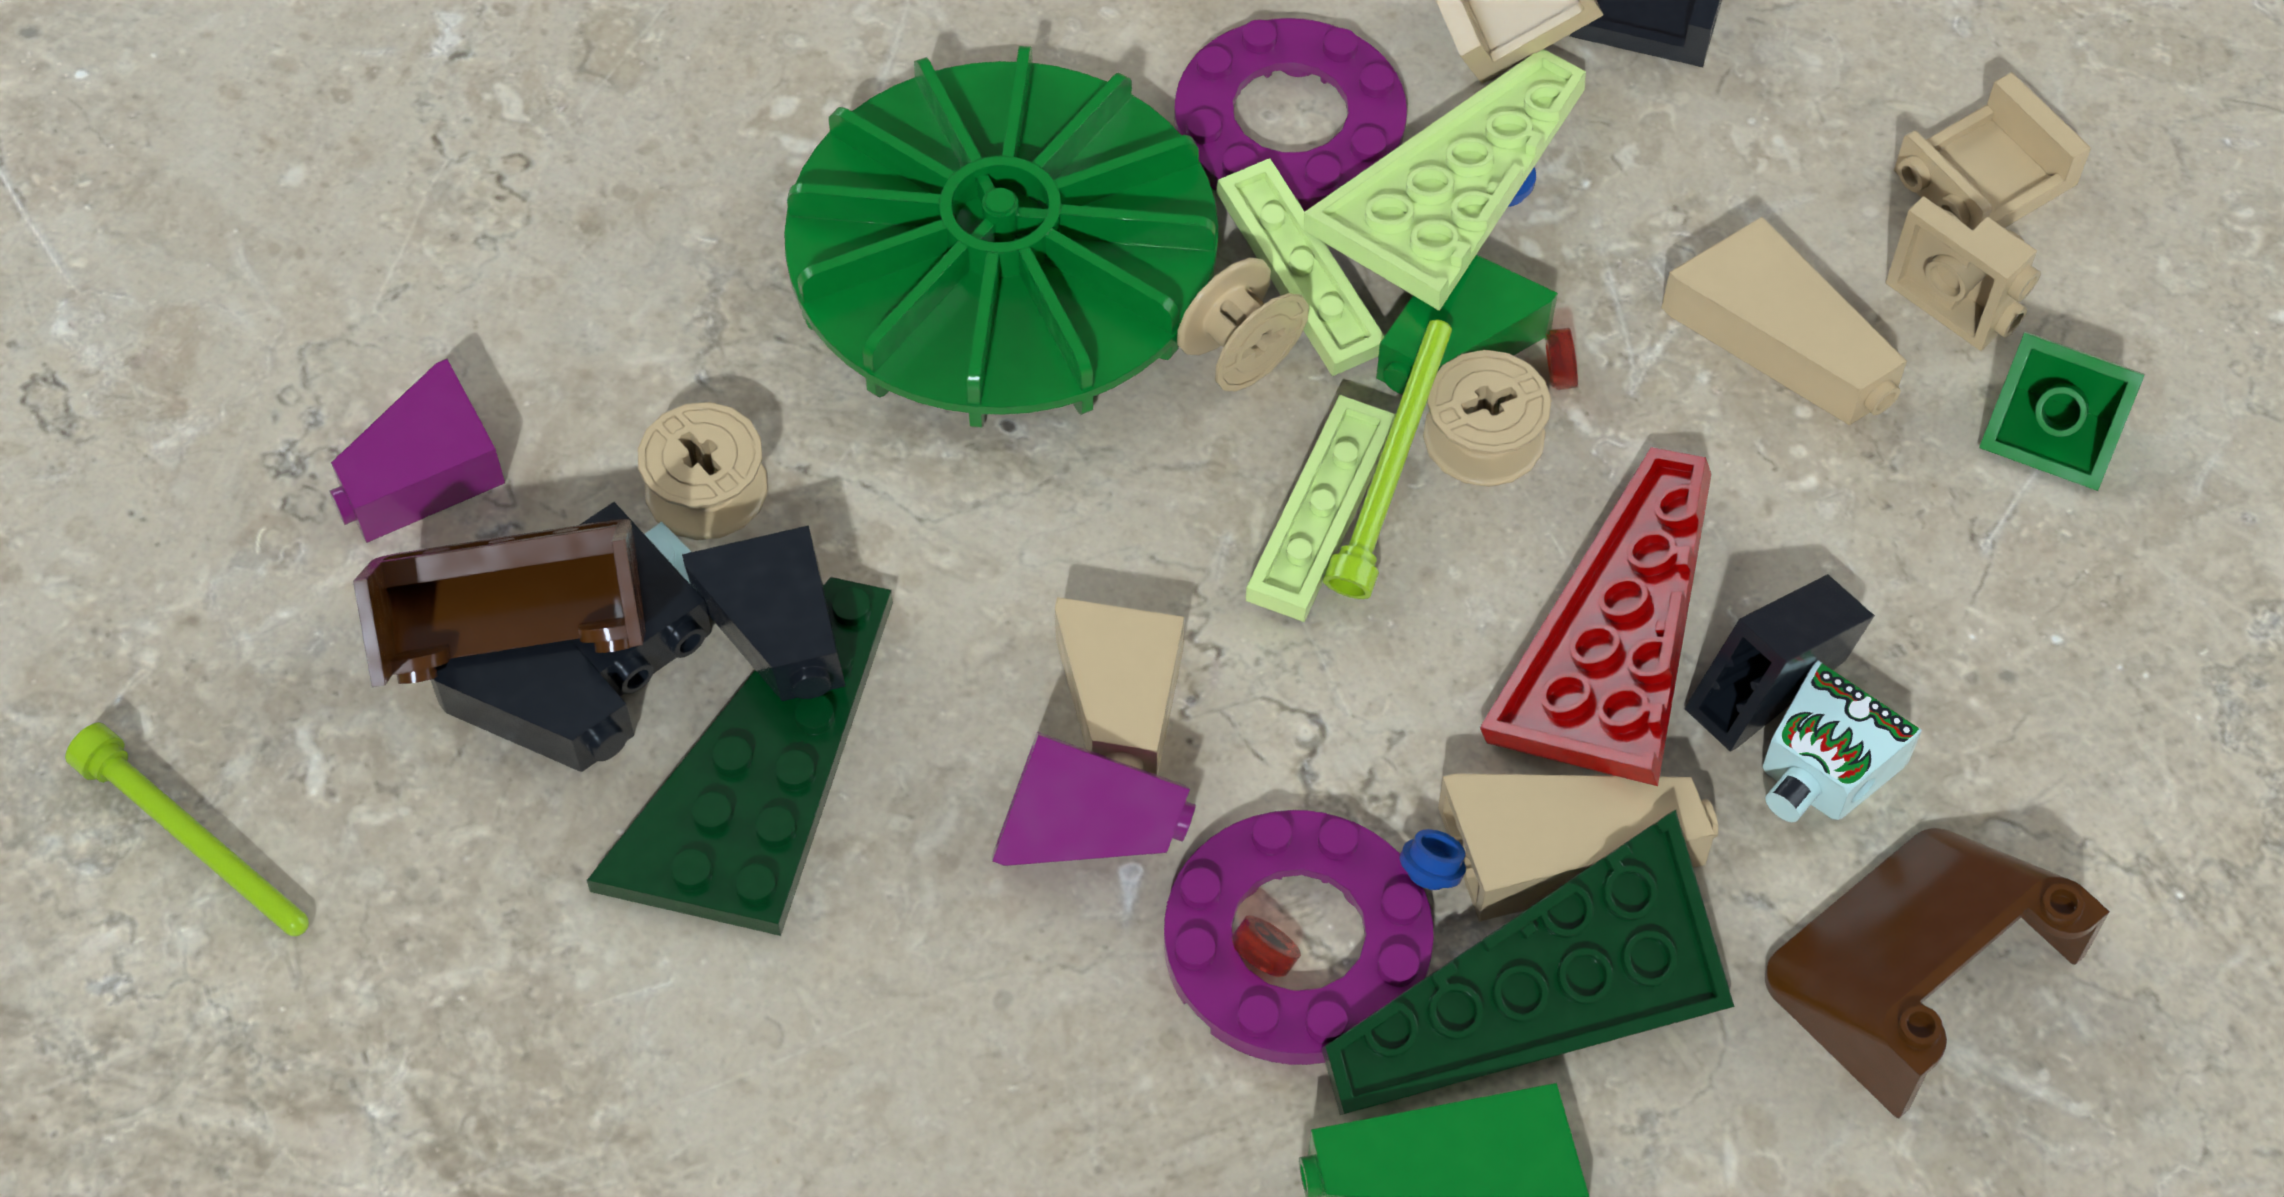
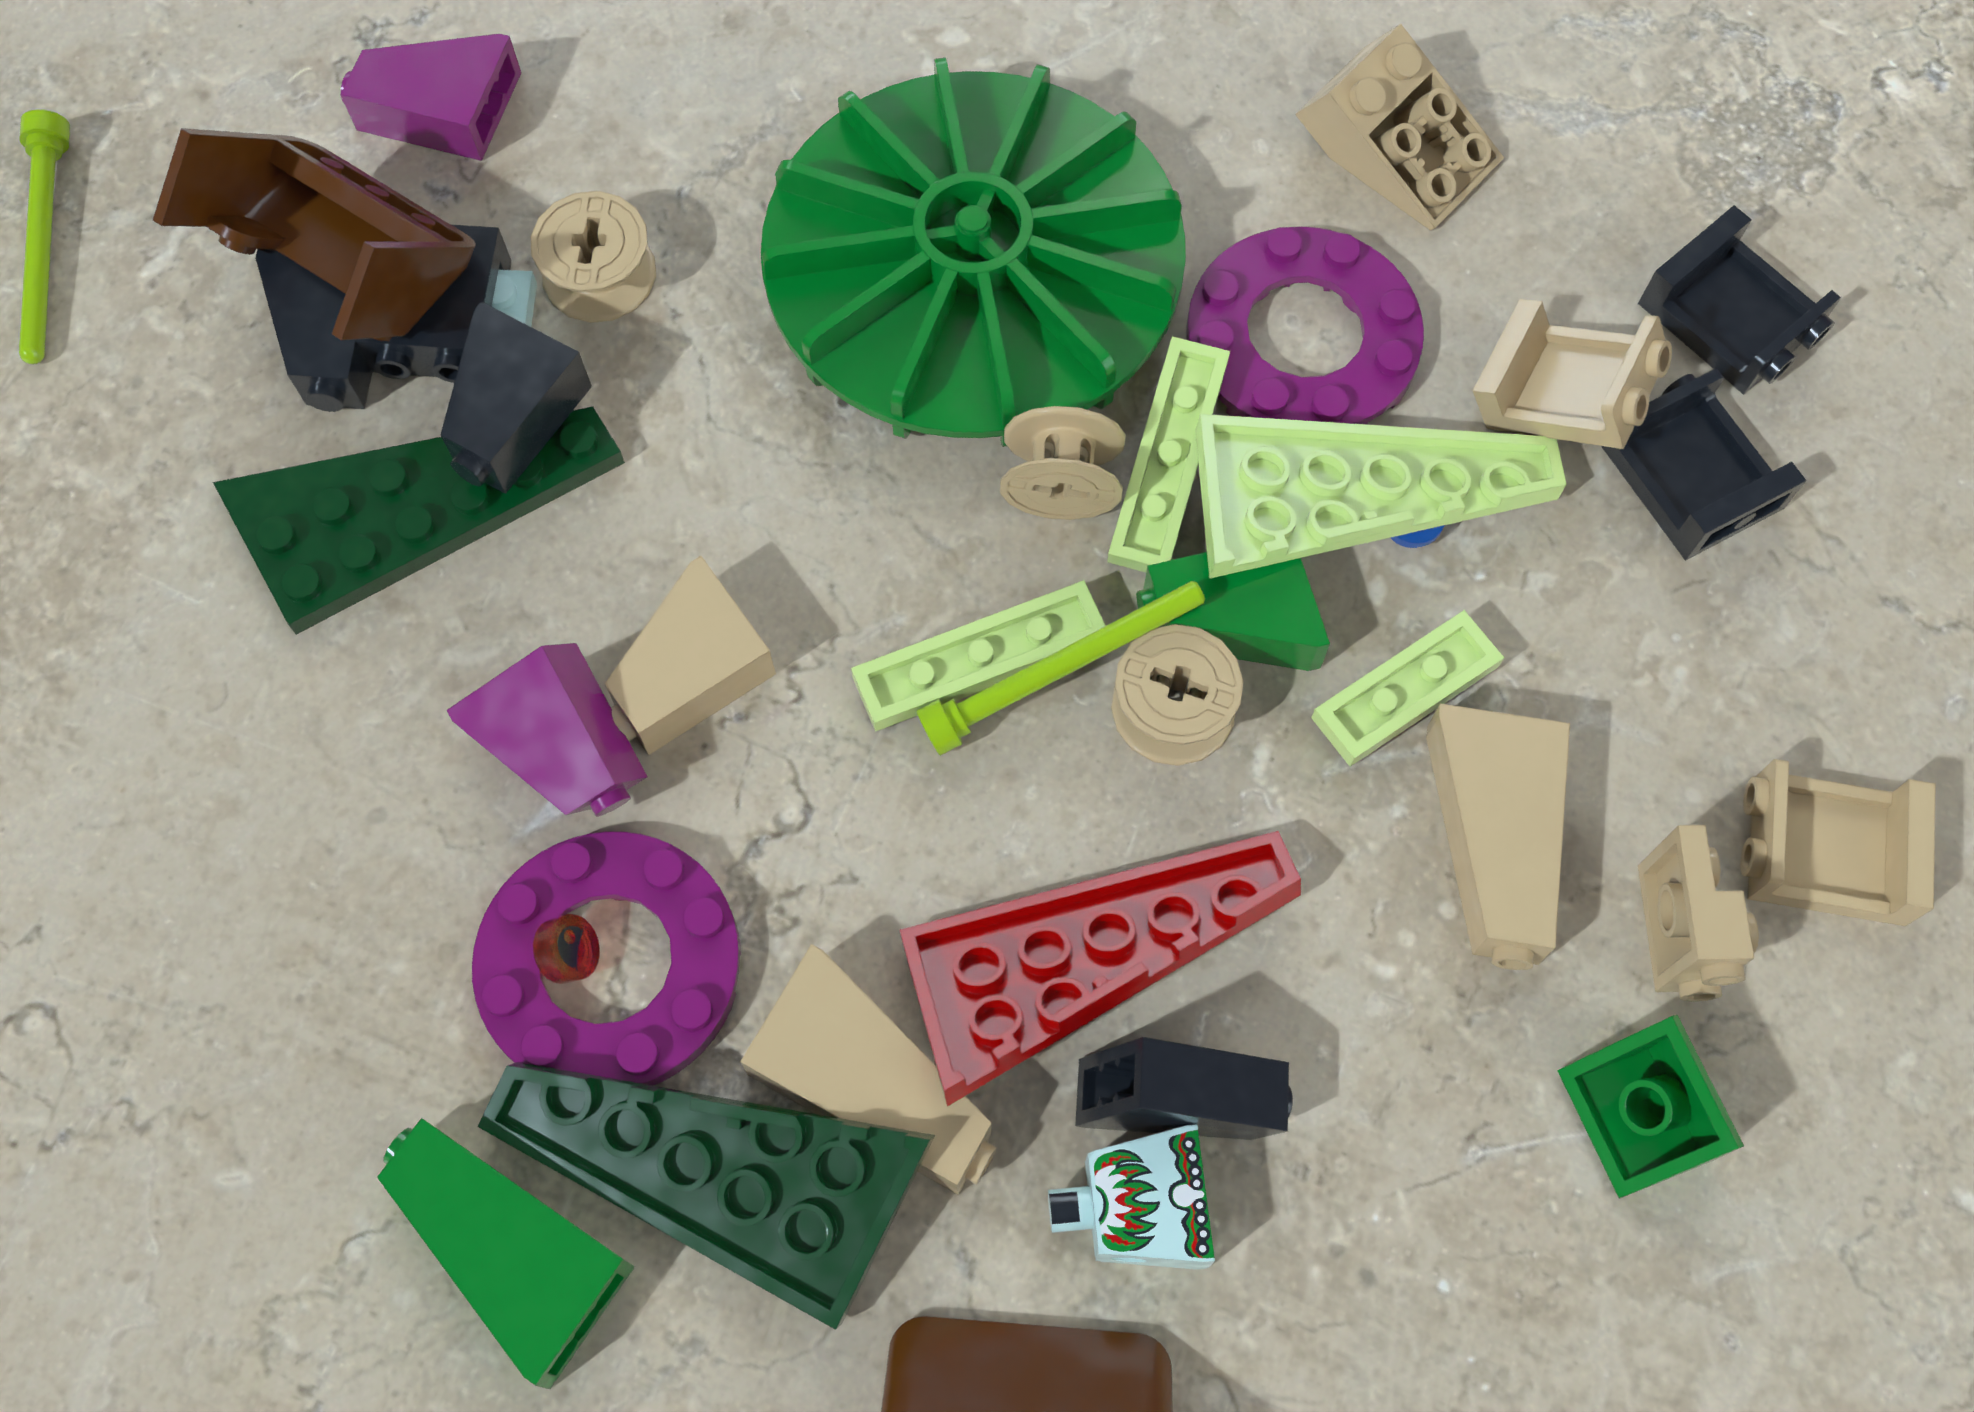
camera: 45 degrees right, 10 degrees up
(1434, 860) = (744, 999): blue plate -> none
(1561, 359) = (1288, 698): clear red tile -> none
(1627, 289) = (1407, 688): none -> yellowish green plate

